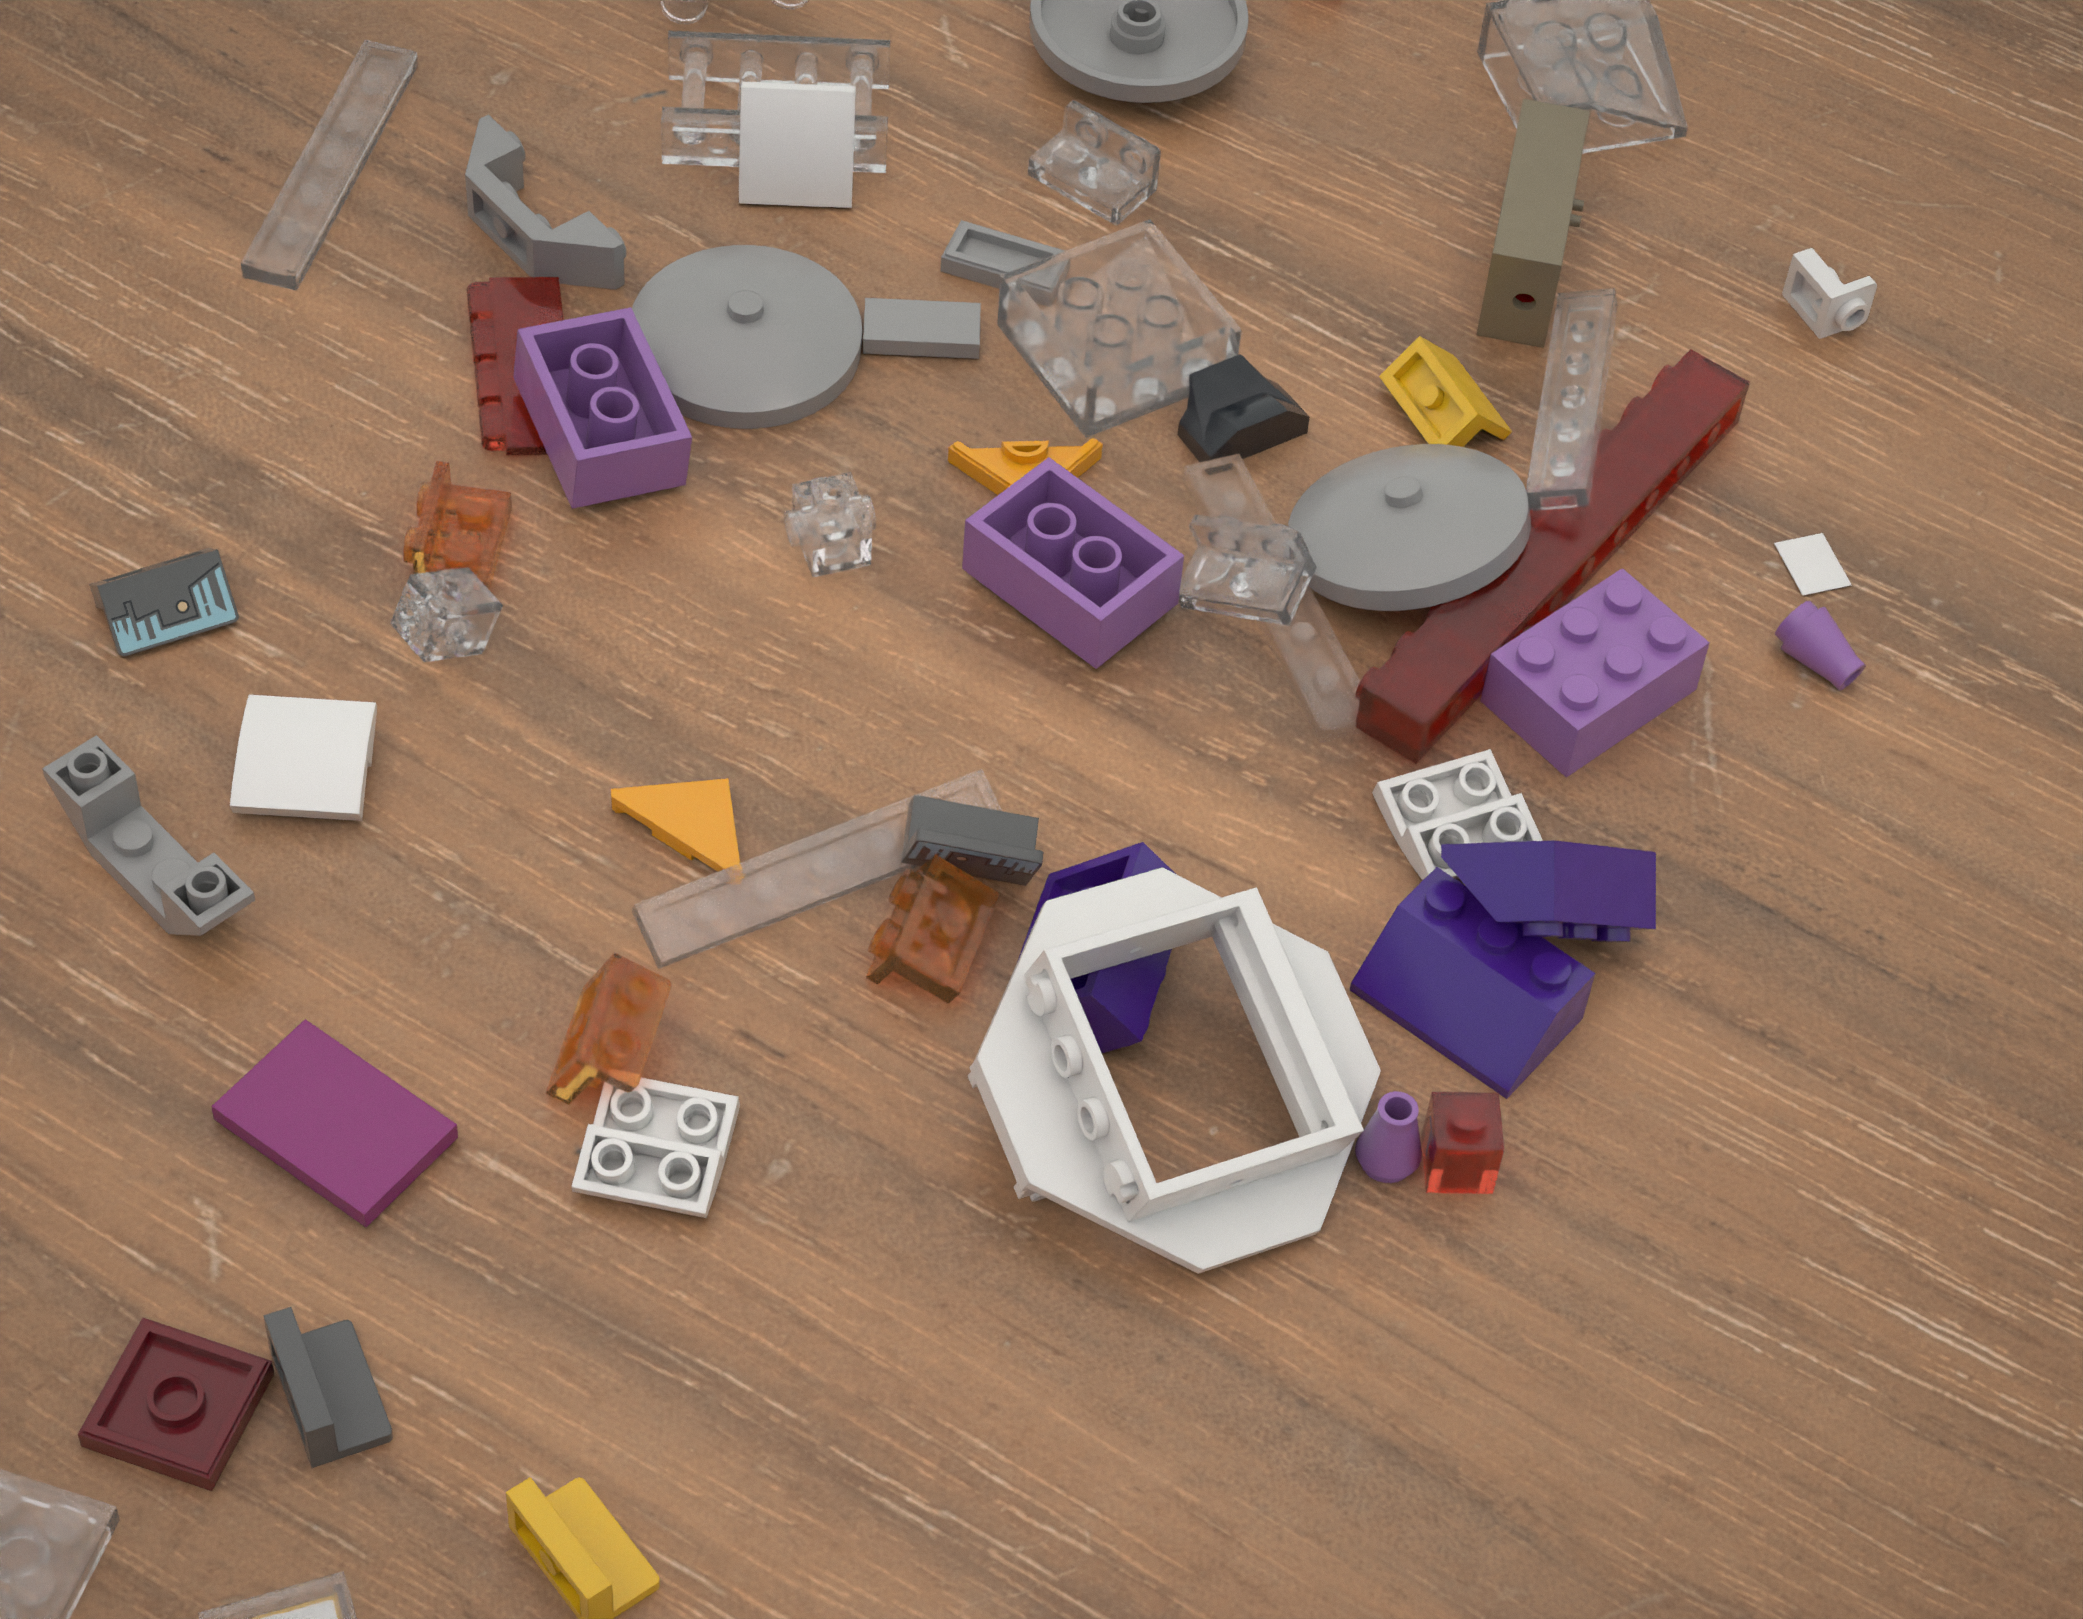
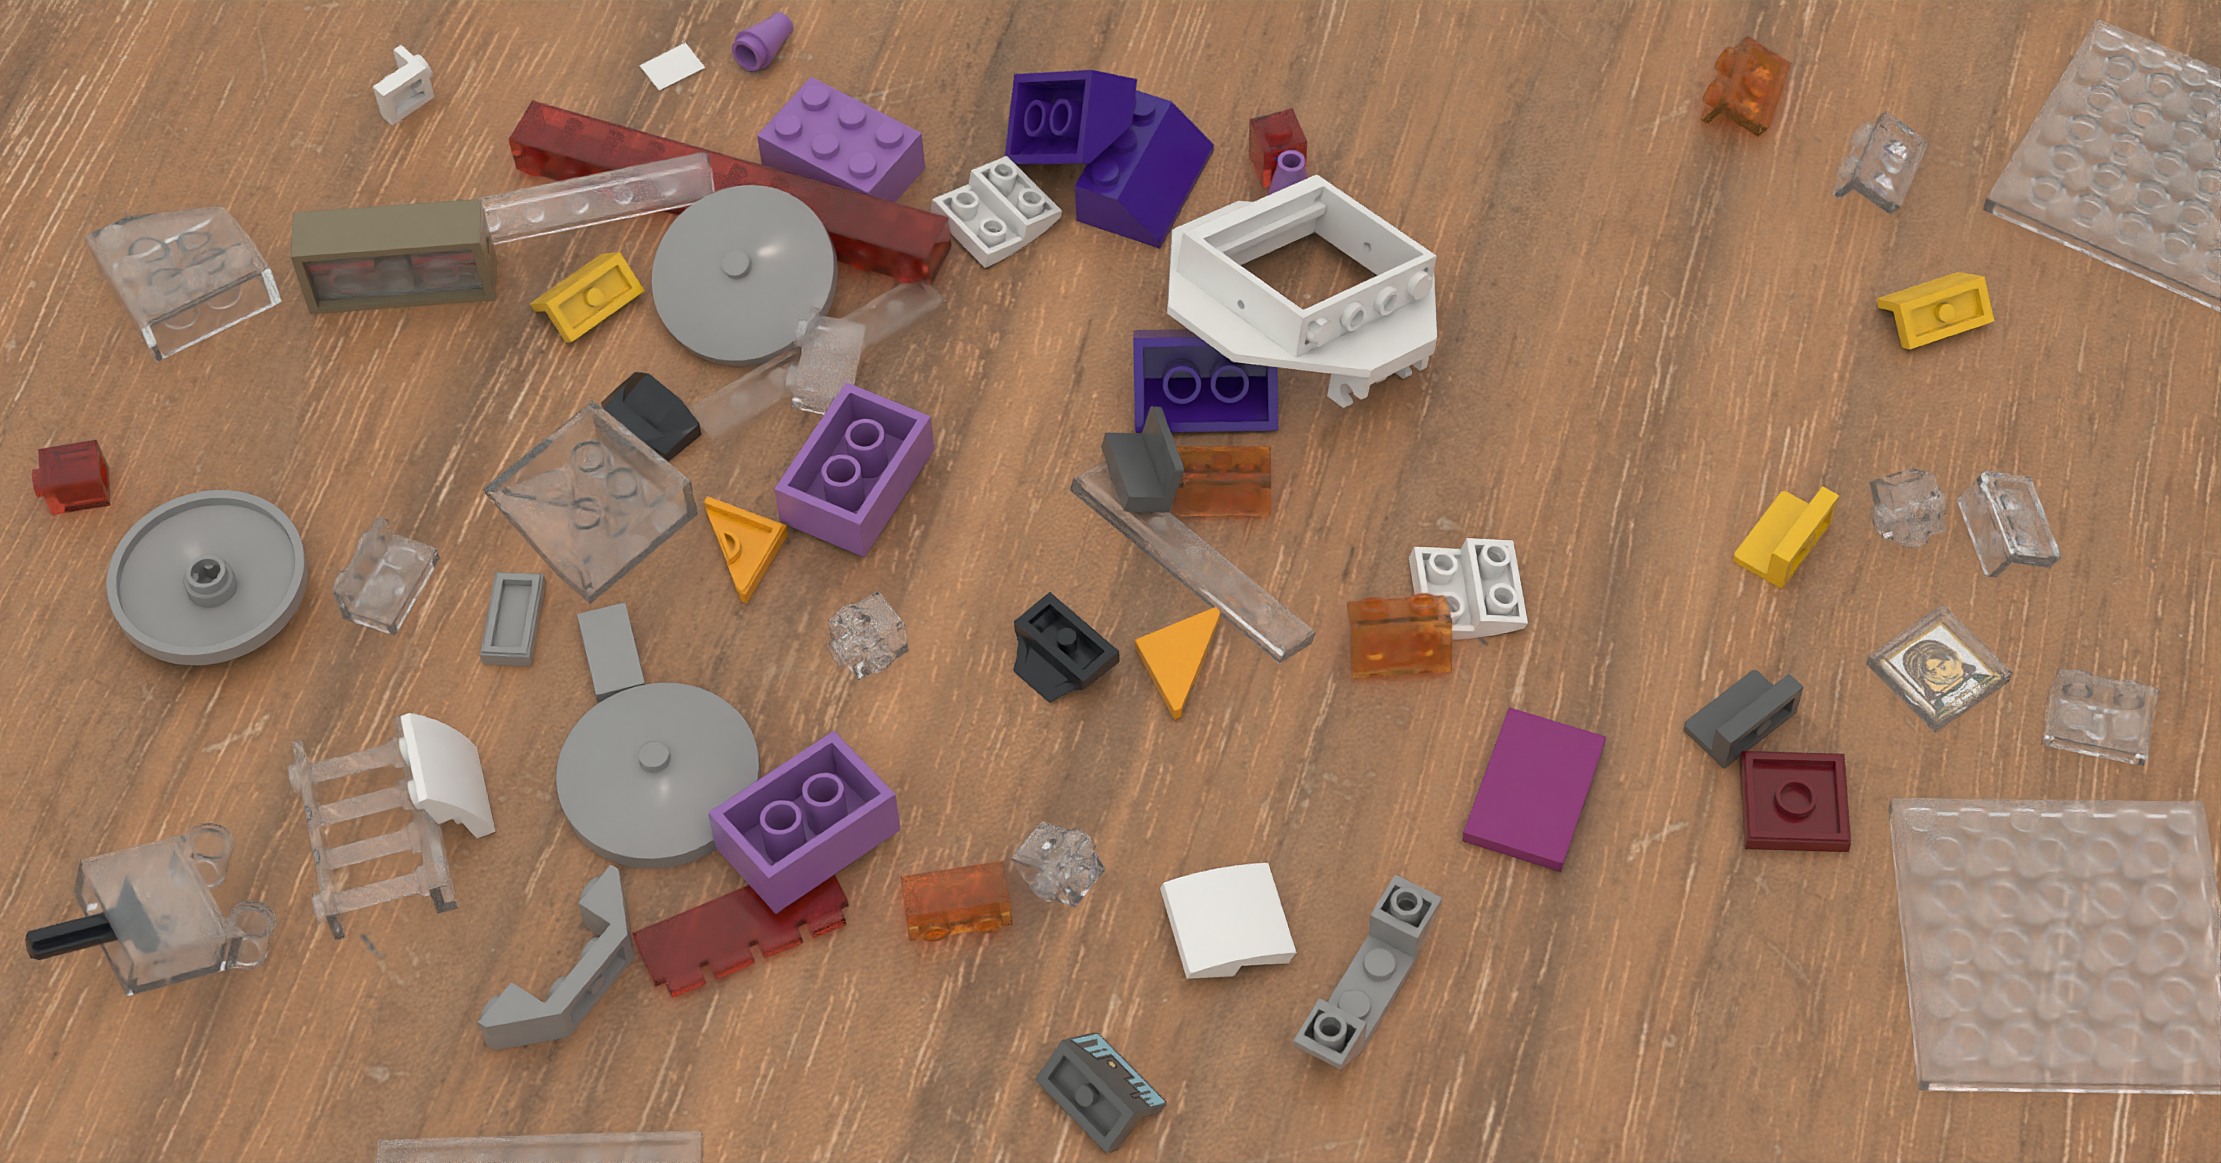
camera: 100 degrees left, 5 degrees up
(748, 709) = (1059, 650): none -> black slope

